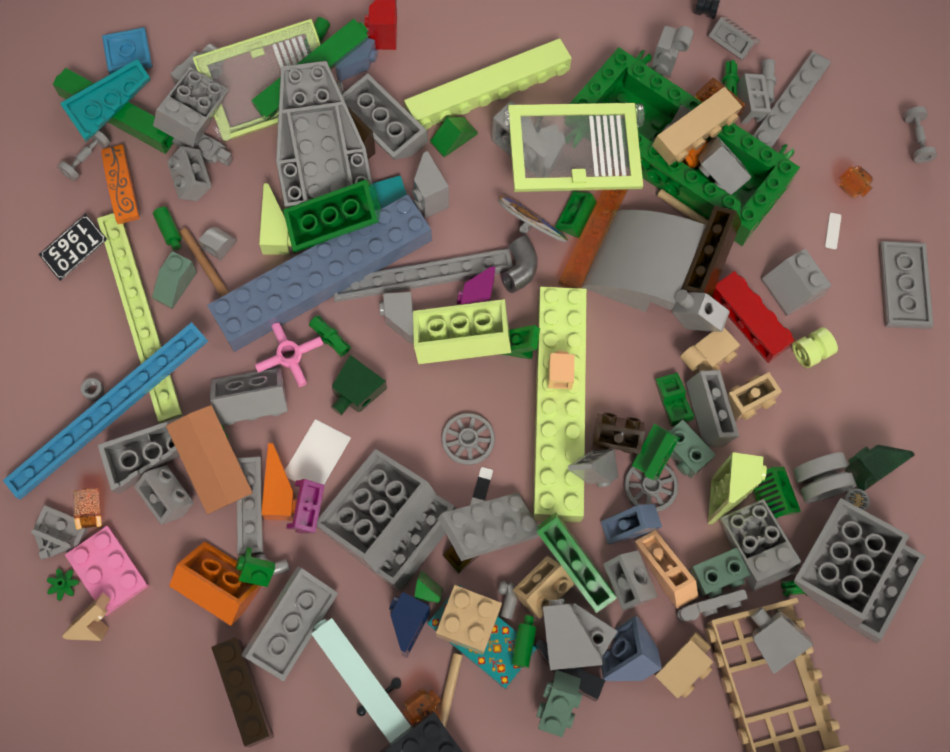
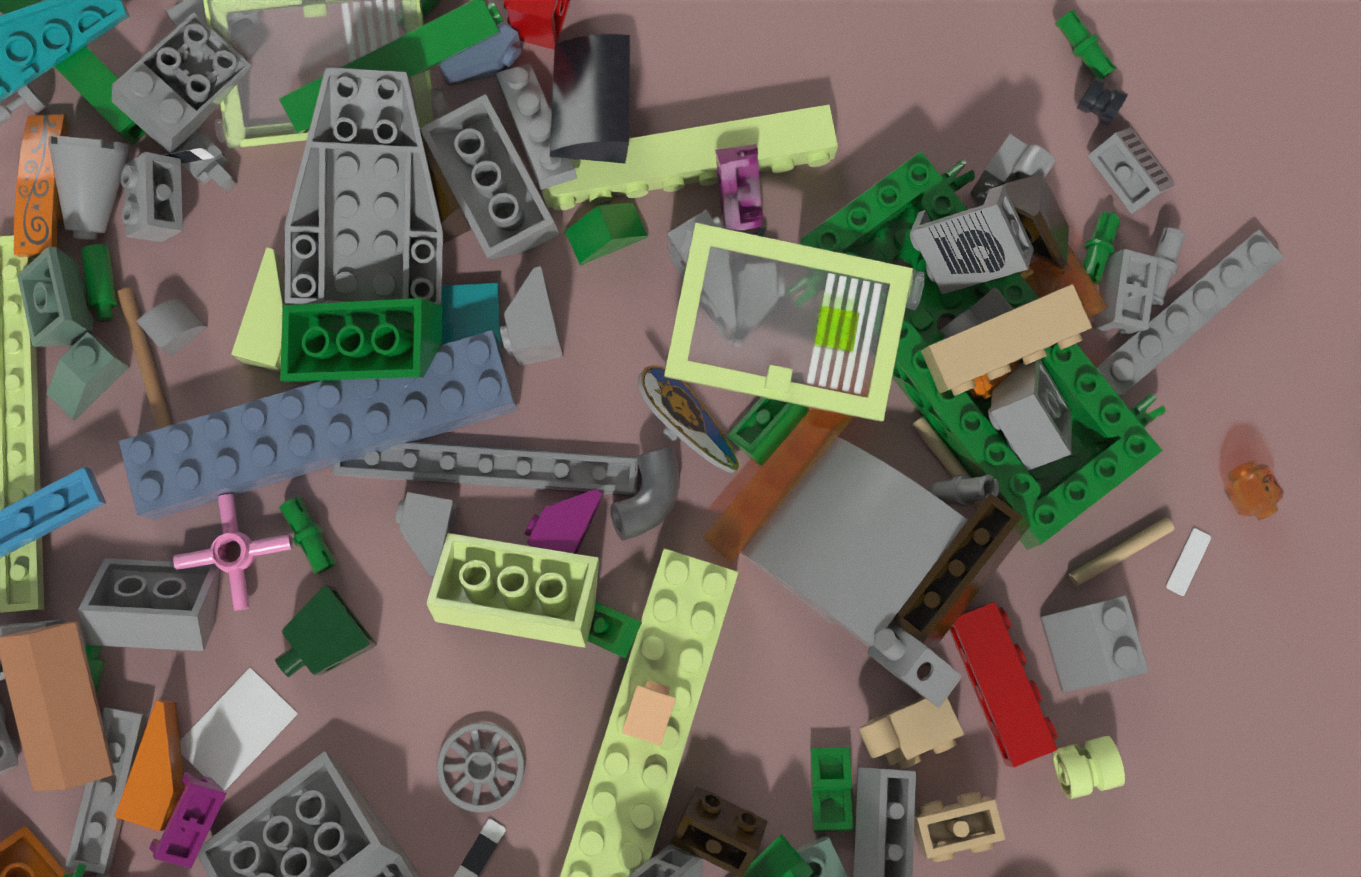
camera: 15 degrees right, 10 degrees up
(145, 240) = (54, 300): none -> sand green slope
(148, 172) = (86, 181): none -> light grey cone
(207, 144) = (191, 155): none -> sticker
(399, 86) = (533, 124): none -> light grey plate
(427, 63) = (591, 98): none -> black slope
(521, 86) = (739, 187): none -> magenta hinge
(602, 143) = (836, 329): none -> clear neon green tile
(662, 83) = (973, 243): none -> light grey panel
(689, 66) = (1040, 218): none -> dark brown slope
(702, 213) = (964, 489): none -> light grey pin
(790, 237) = (1121, 551): none -> tan bar
(905, 285) = (1279, 691): light grey tile -> none

